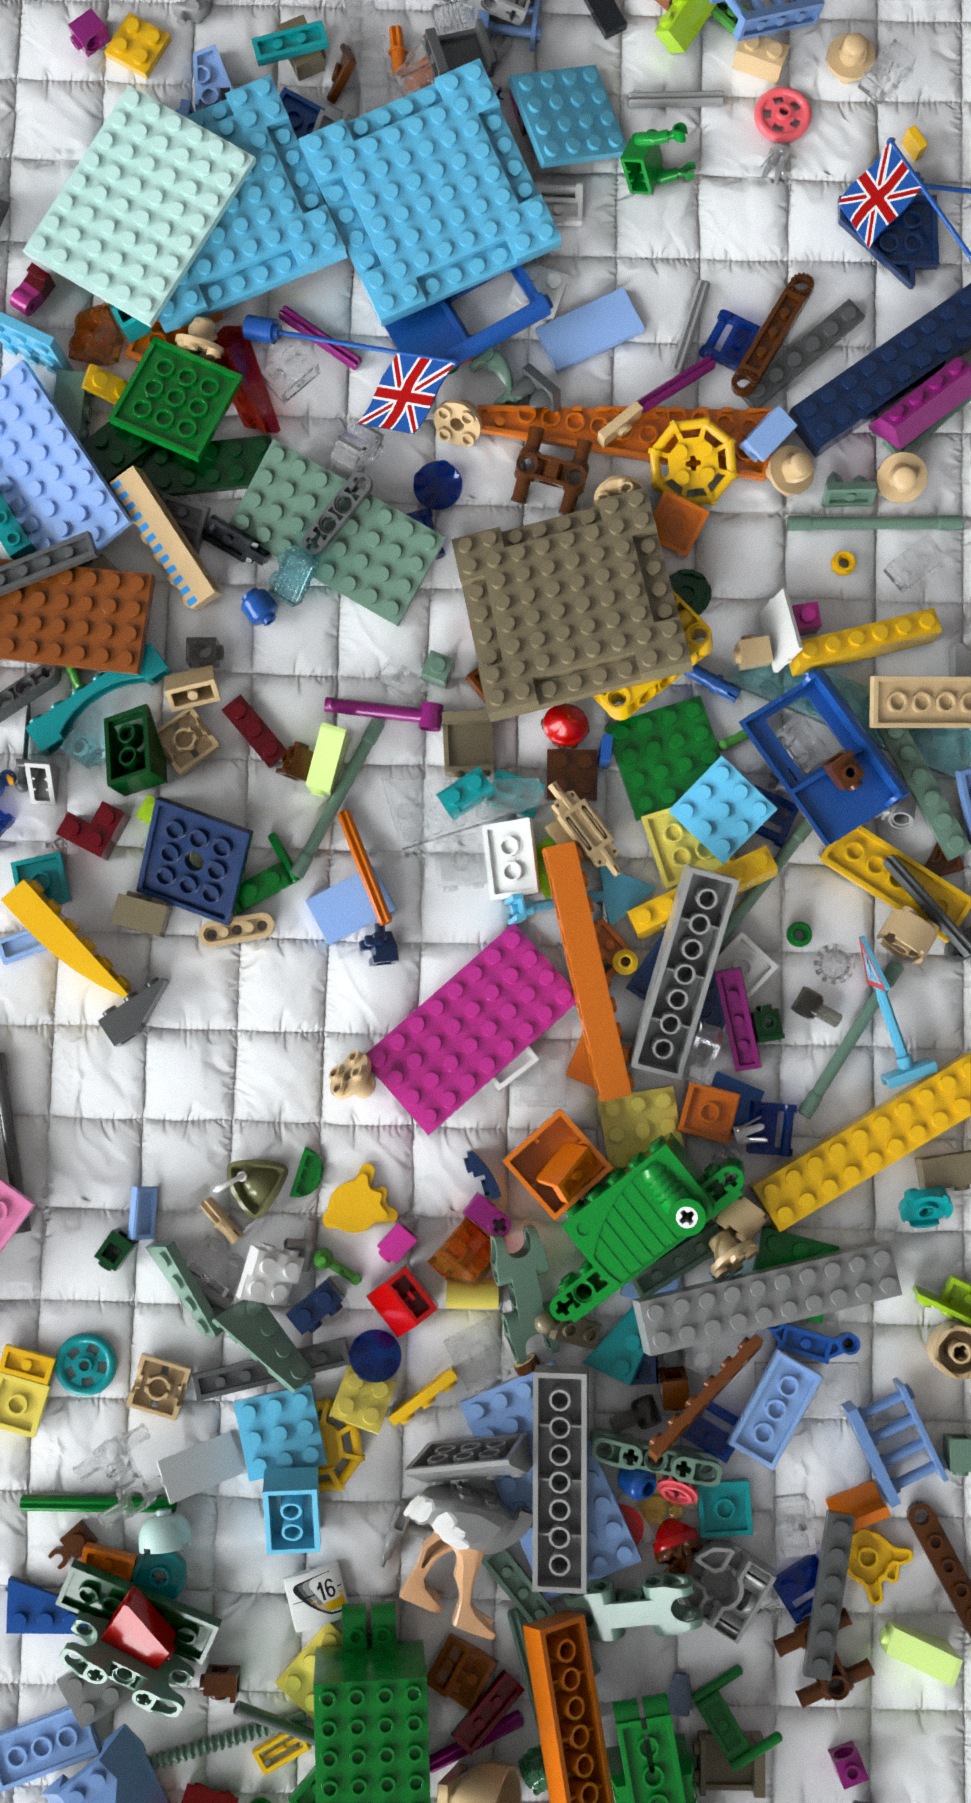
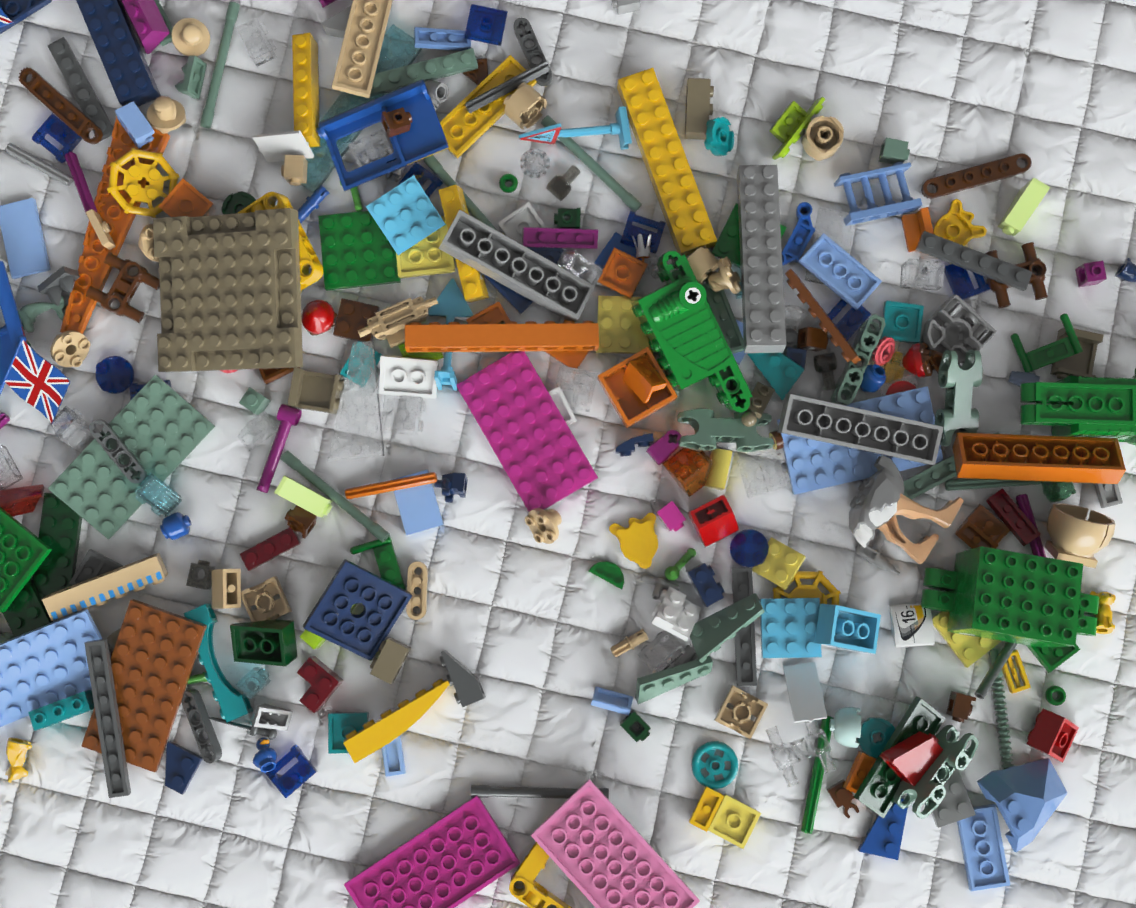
camera: 75 degrees left, 0 degrees up
(234, 541) = (120, 535): black hinge -> none
(255, 1184) = (608, 612): olive hat -> none
(424, 1396) = (785, 518): yellow plate -> none
(466, 793) = (352, 397): teal brick -> none
(472, 1459) = (835, 490): light grey slope -> none
(605, 751) = (344, 291): blue tile -> none
(616, 962) = (501, 315): yellow plate -> none
(807, 618) = (278, 124): dark pink brick -> none
(843, 556) = (244, 88): yellow plate -> none

